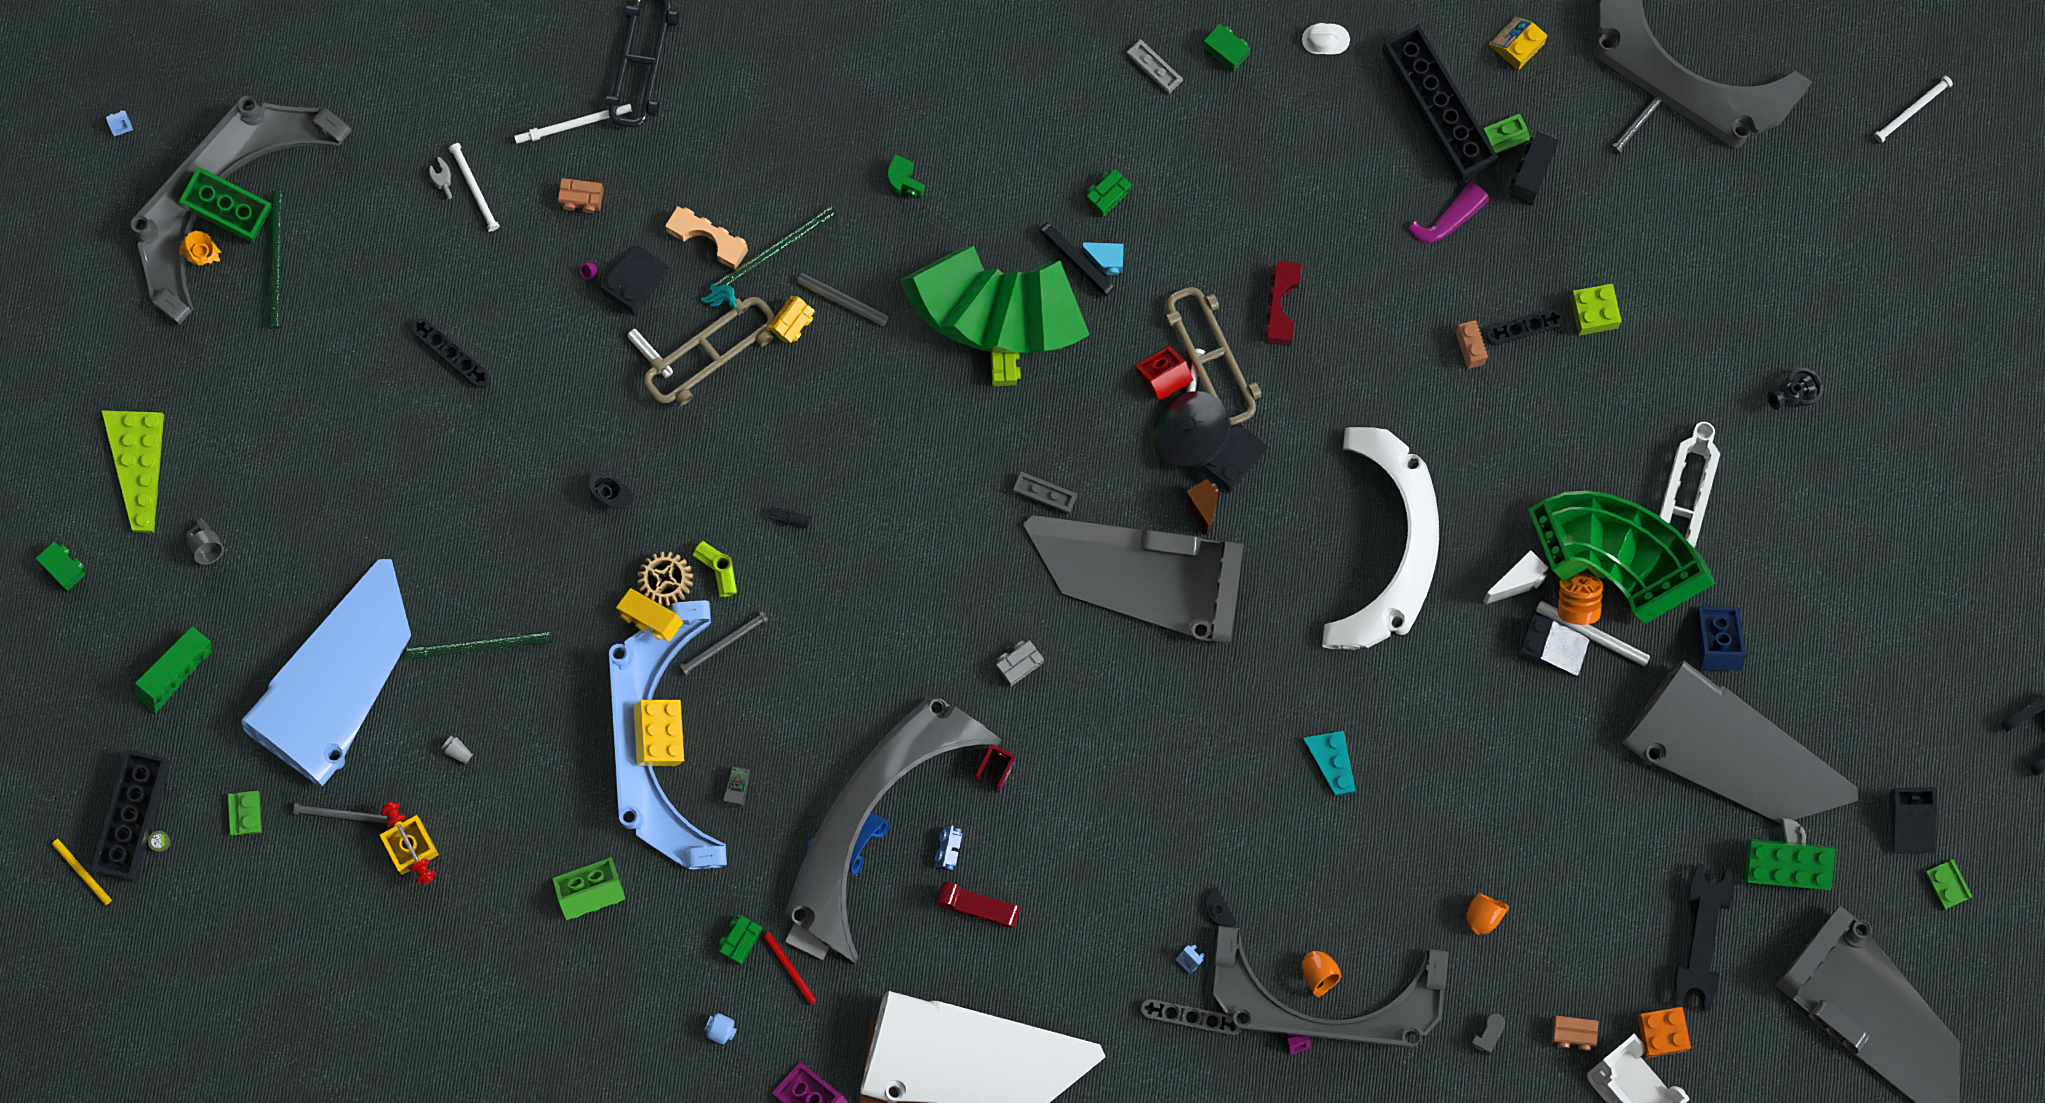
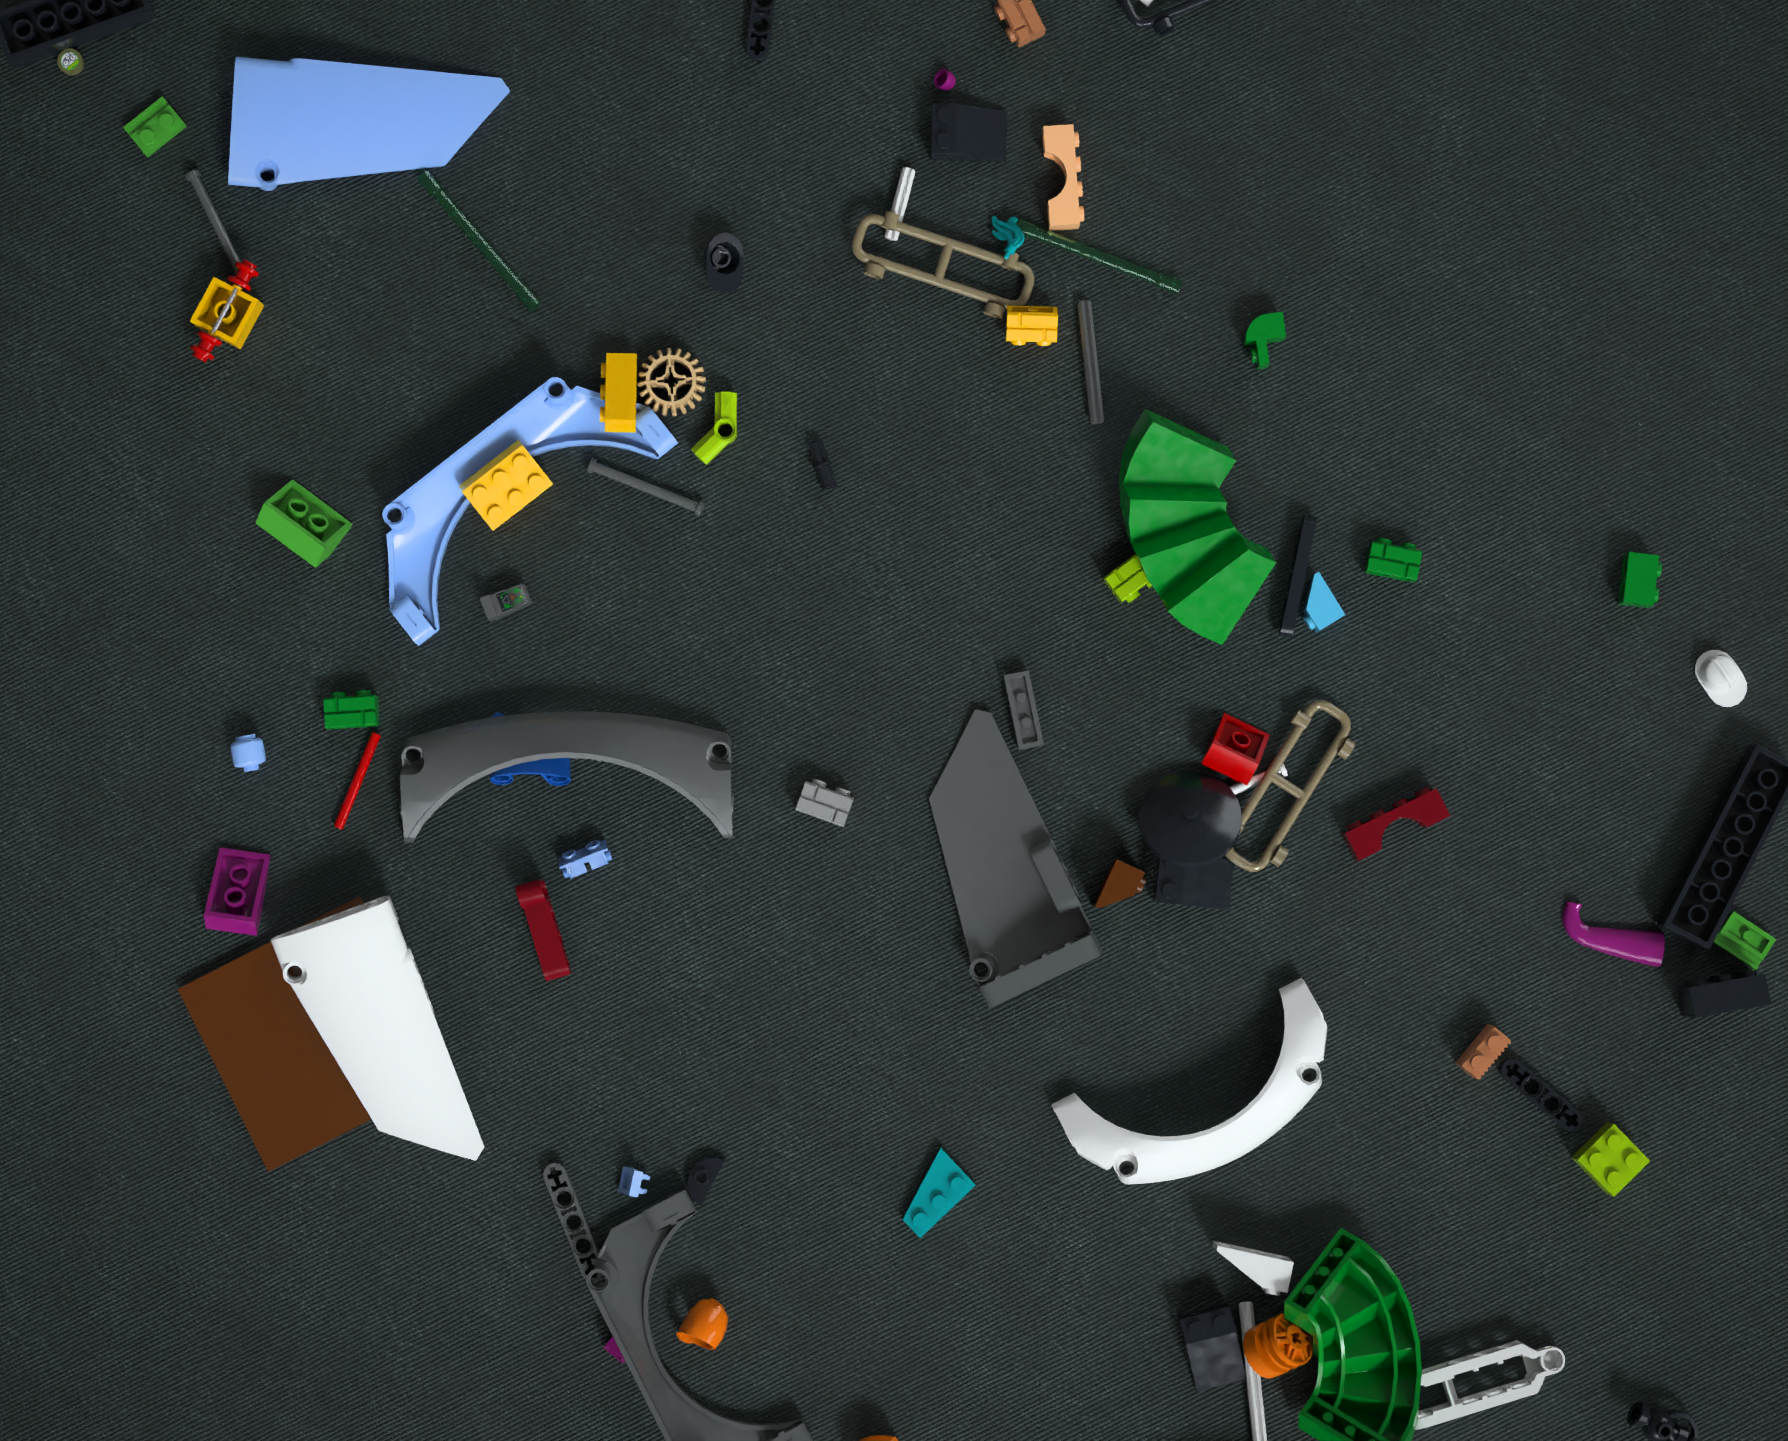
camera: 55 degrees right, 10 degrees up
(456, 749) = (357, 293): light grey cone -> none
(807, 942) = (391, 777): light grey tile -> none
(1002, 753) = (702, 837): dark red piece -> none
(1154, 66) = (1566, 517): light grey tile -> none

